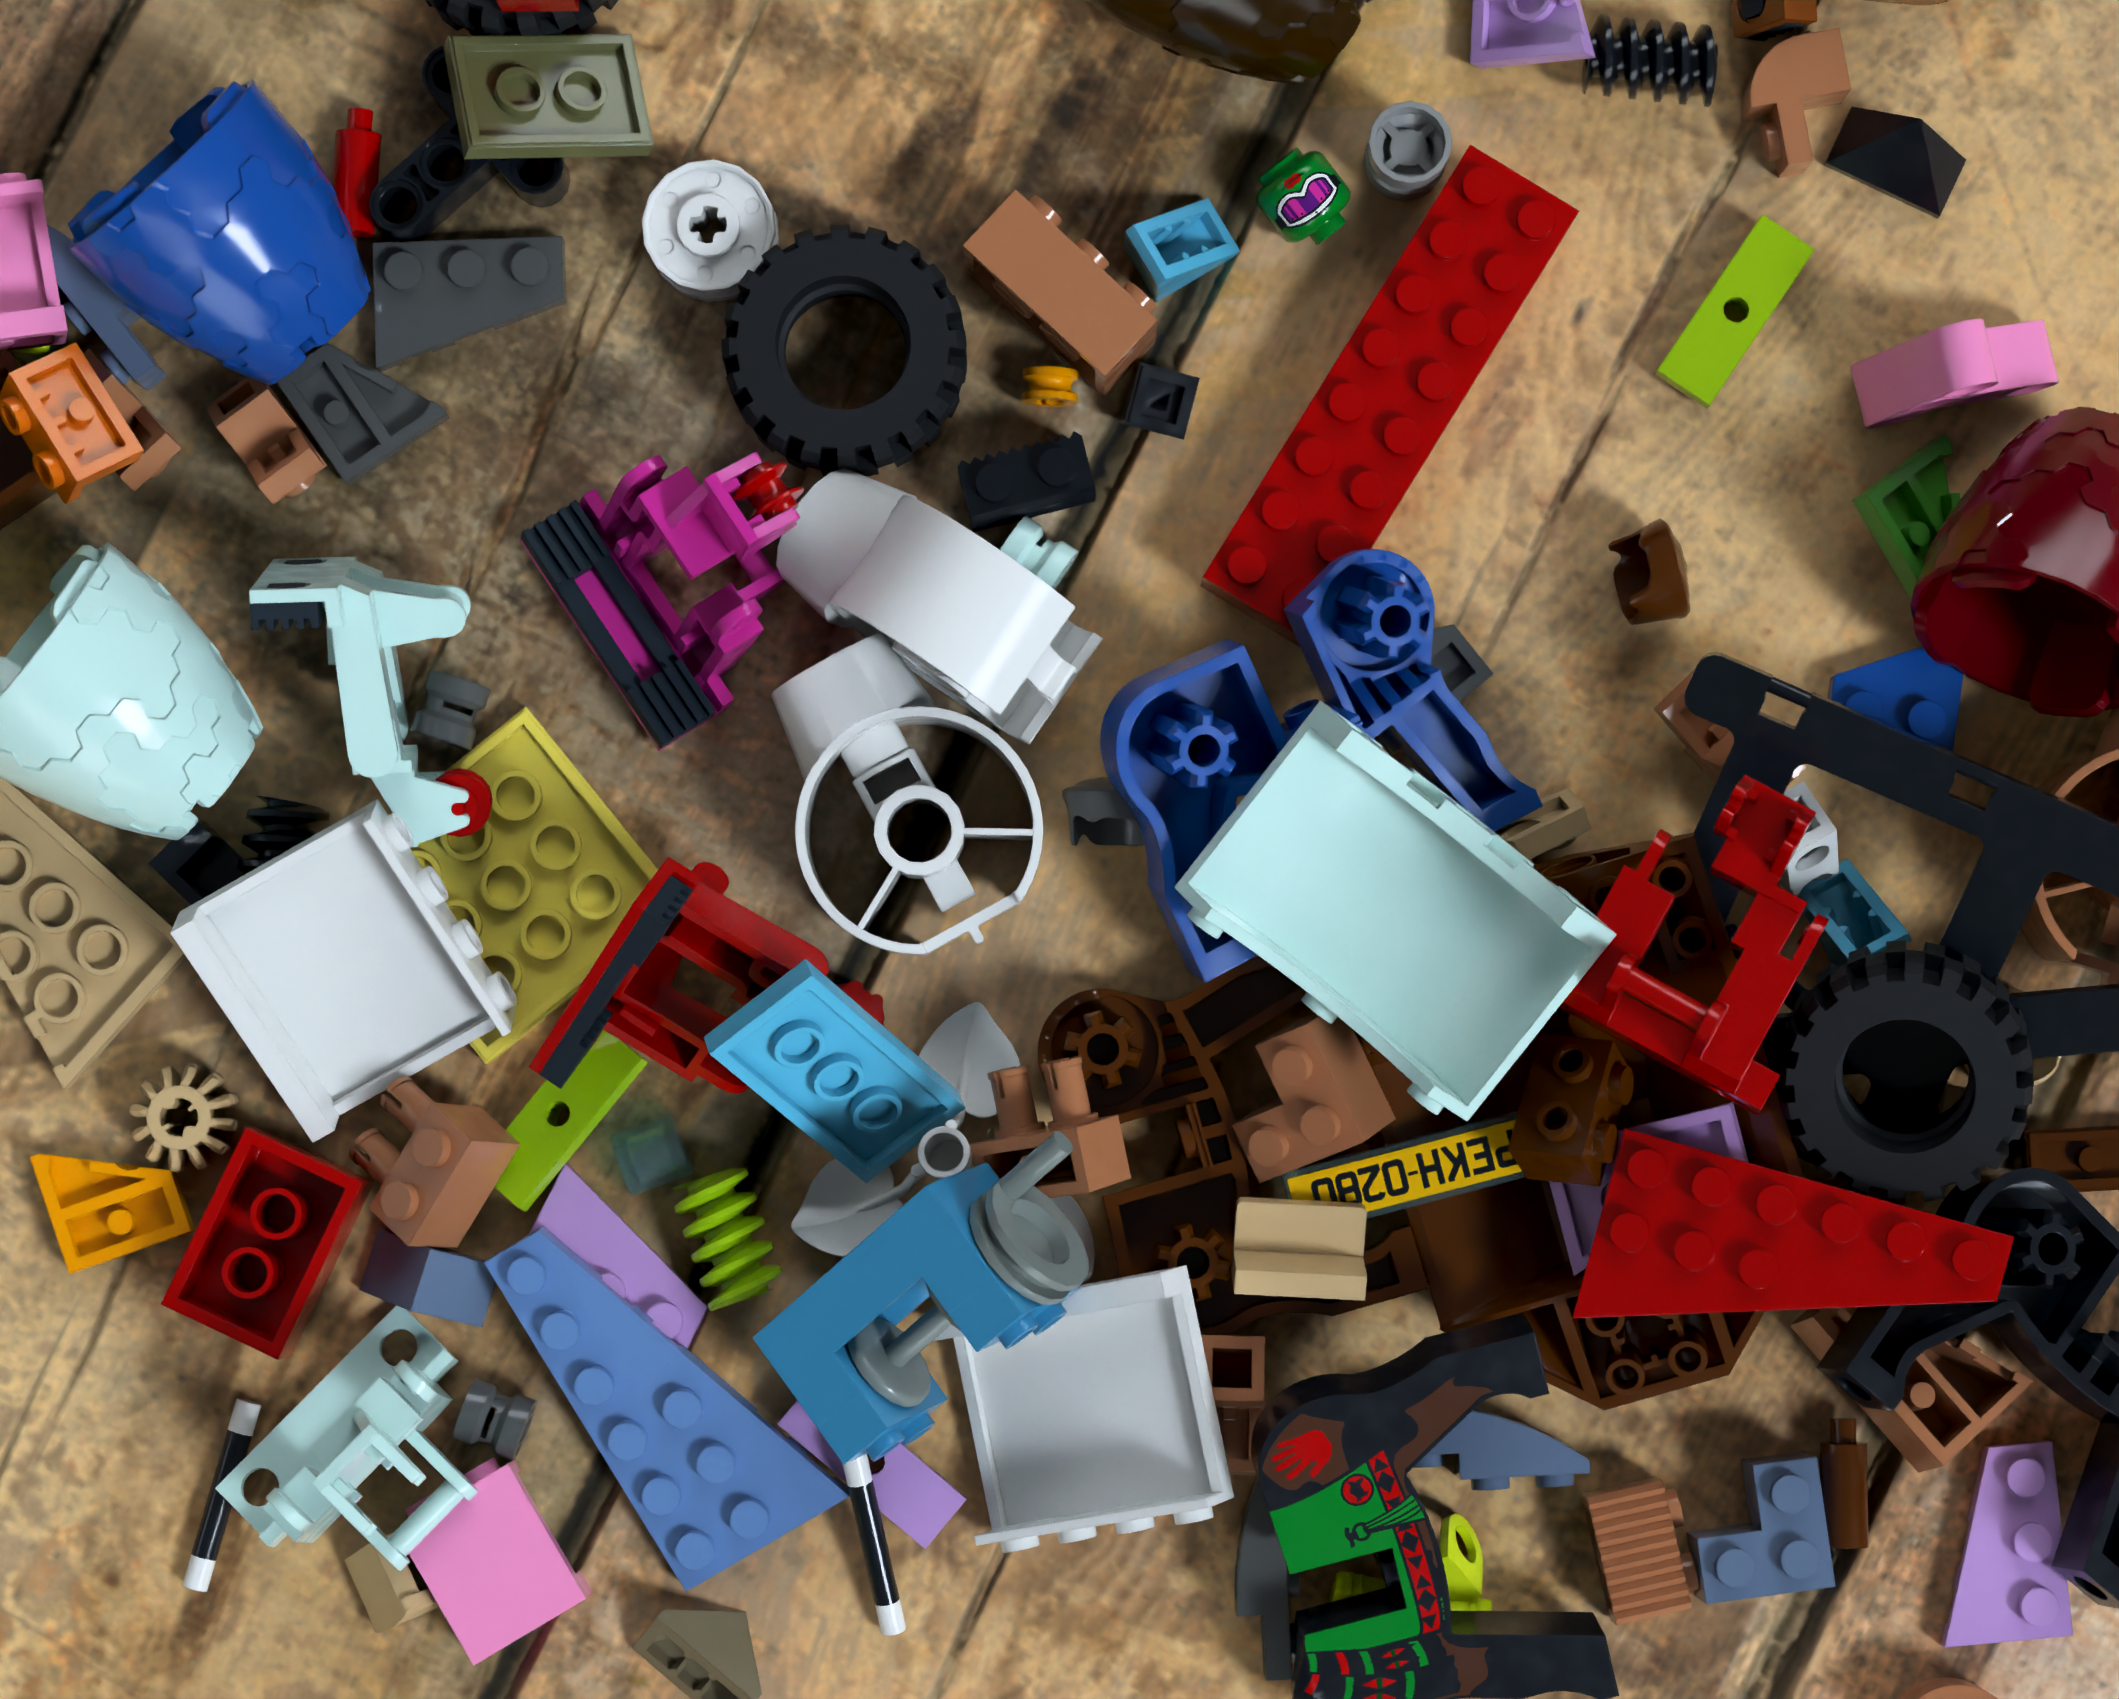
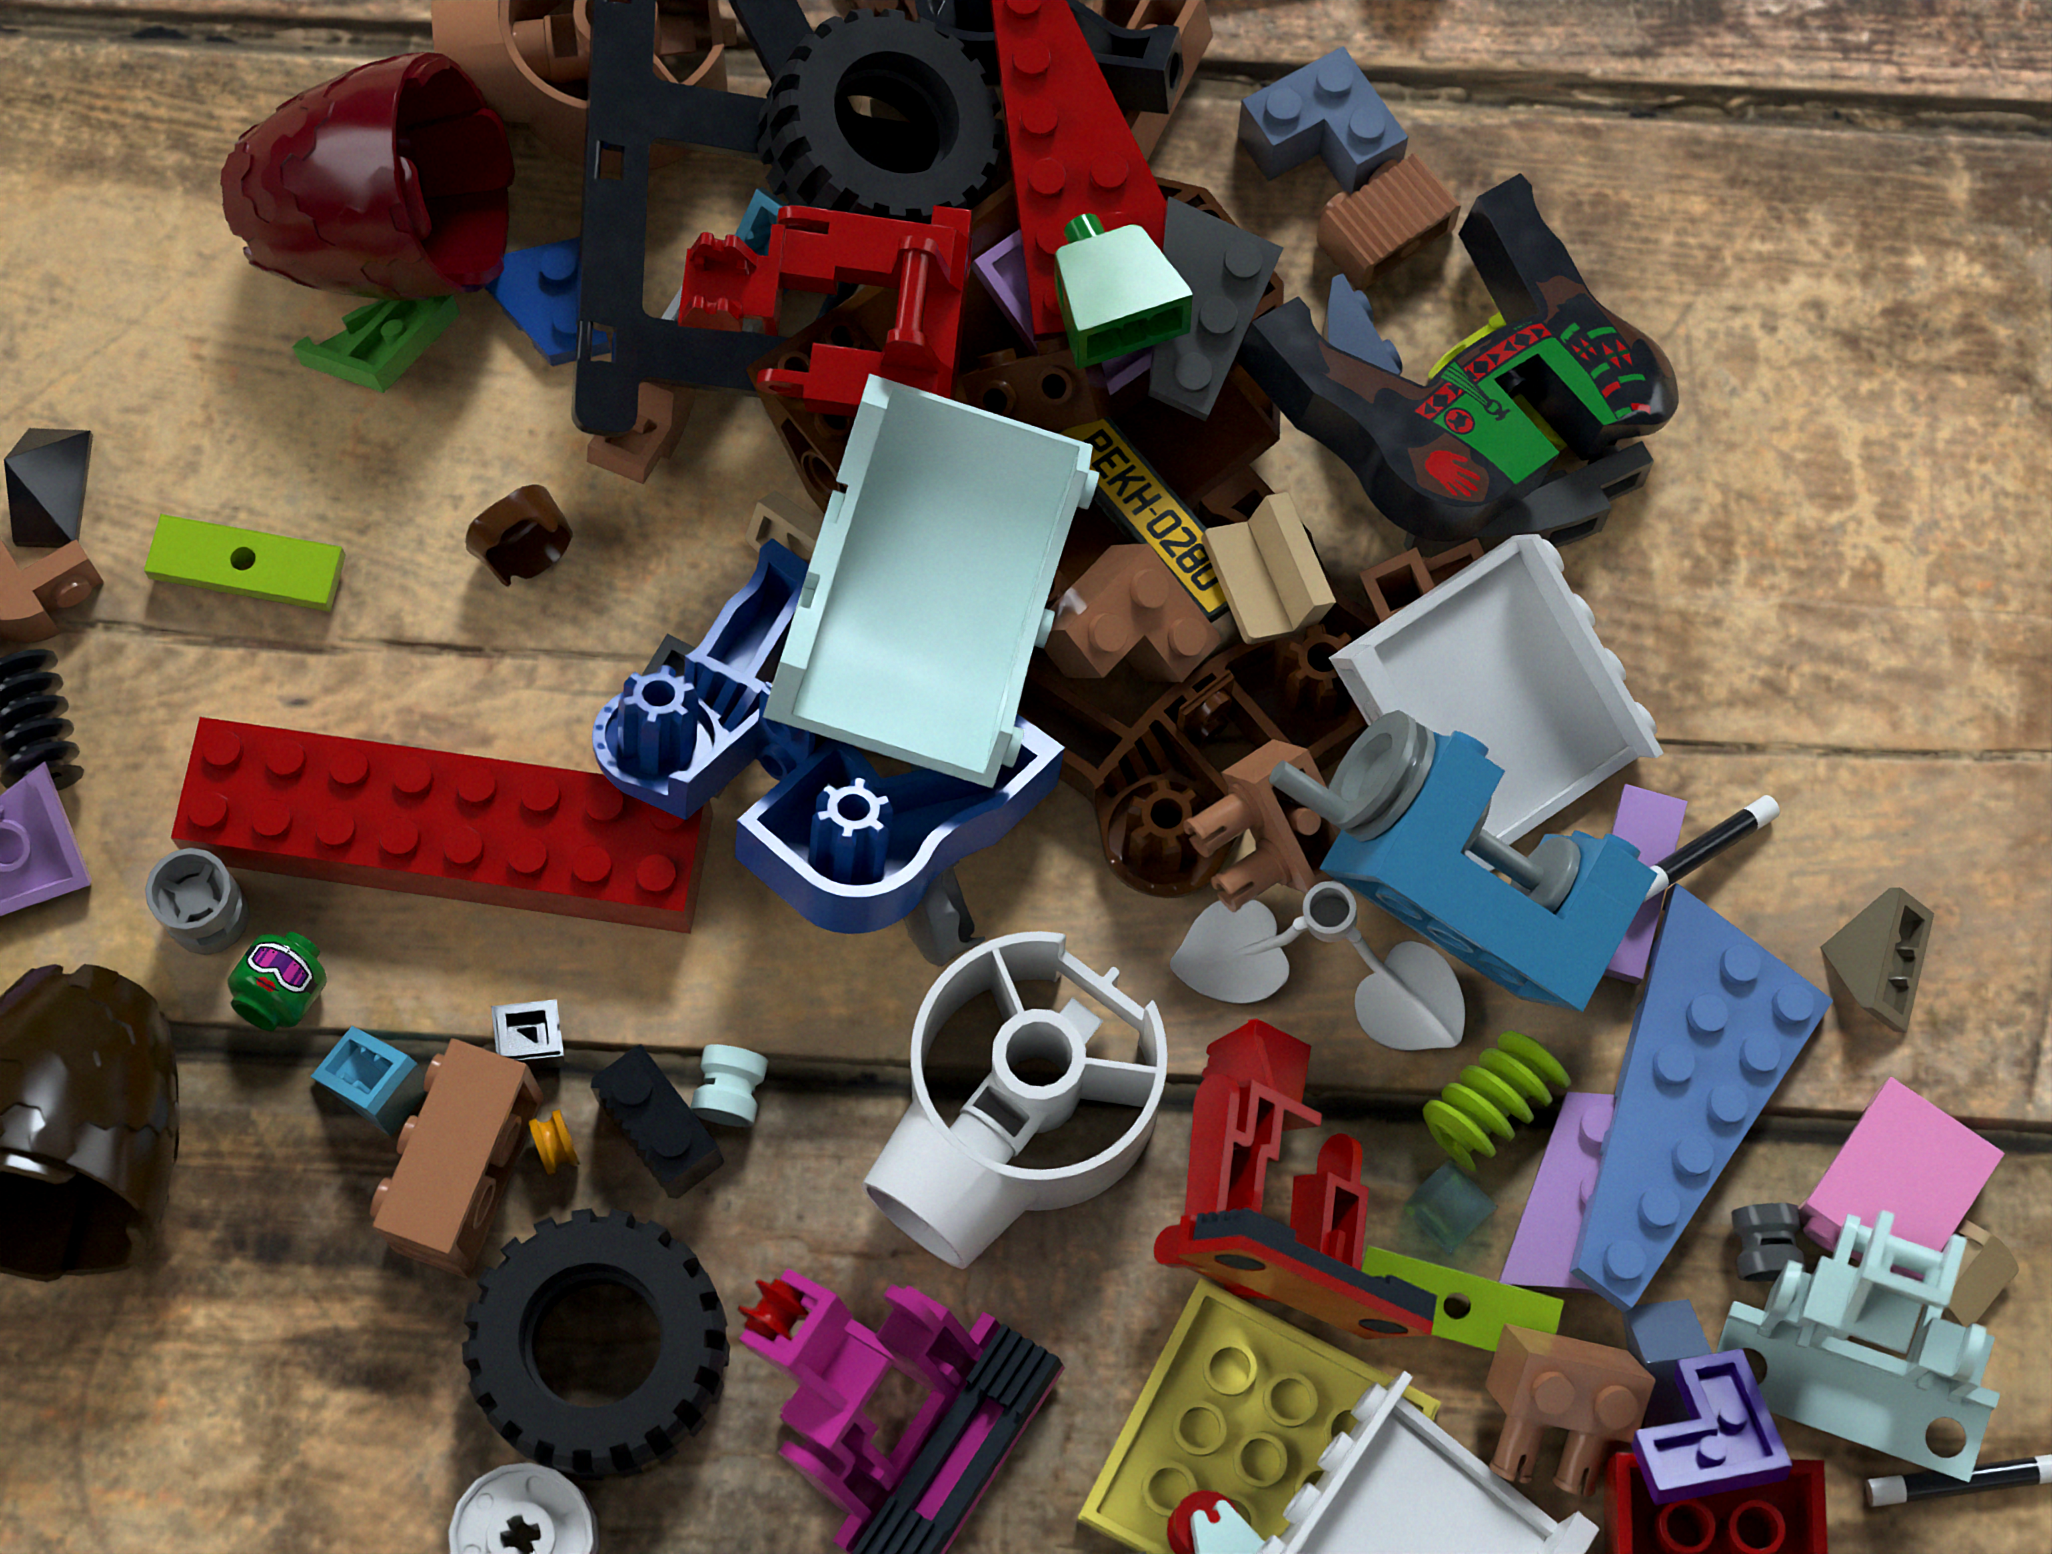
camera: 115 degrees left, 15 degrees down
(323, 1281) = (1725, 1443): none -> plate
(834, 1071) = (1301, 1040): medium azure plate -> none
(939, 595) = (806, 1130): white animal -> none
(1583, 1304) = (1227, 279): none -> dark grey wing
(1618, 1212) = (1117, 291): none -> torso
(1845, 1485) = (1227, 91): reddish brown cylinder -> none
(1953, 368) = (236, 356): bright pink beam -> none

